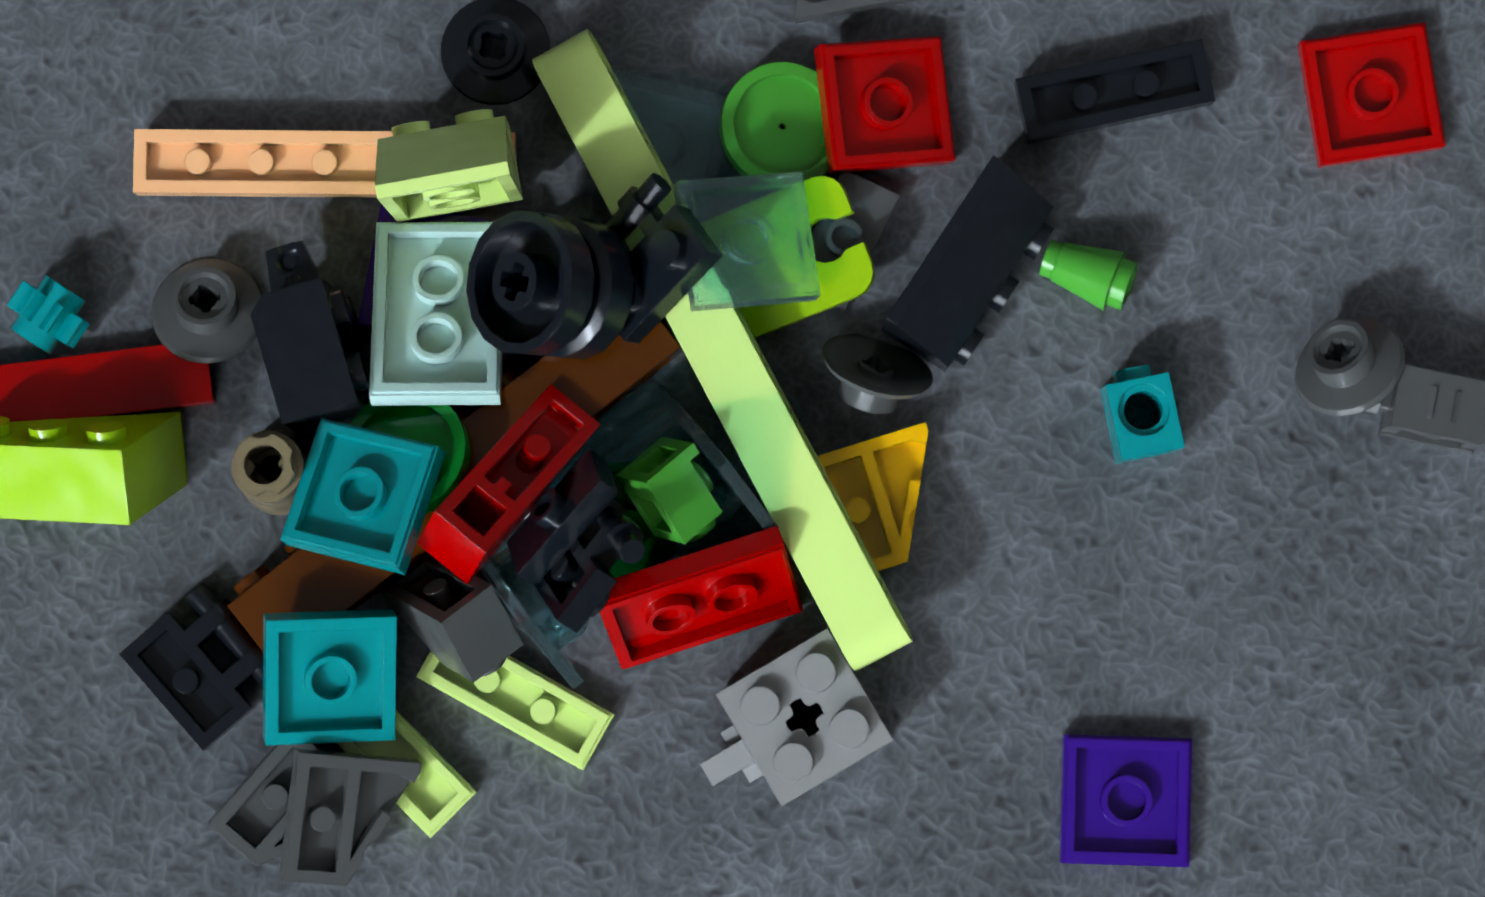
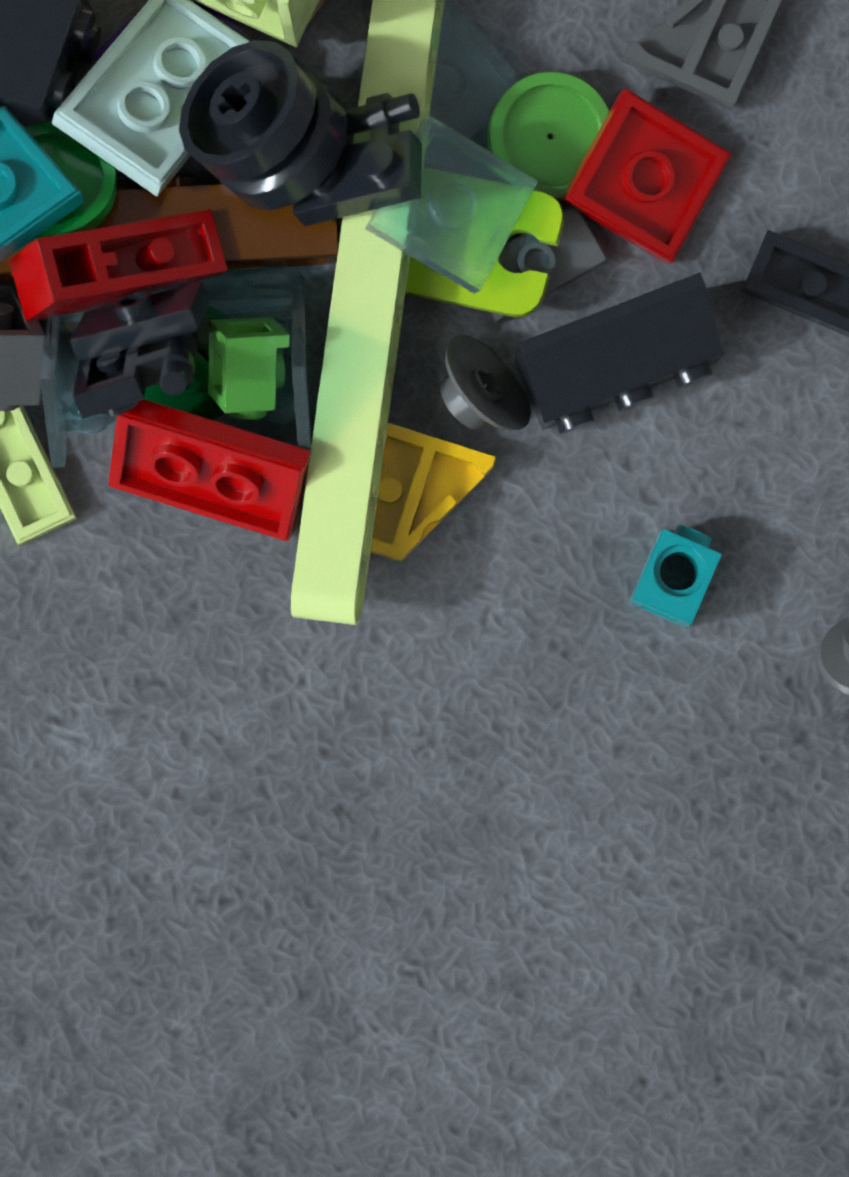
camera: 30 degrees right, 0 degrees up
(790, 759) = (180, 619): light grey hinge -> none
(1091, 273) = (717, 432): bright green cone -> none
(1125, 800) = (441, 881): dark purple tile -> none

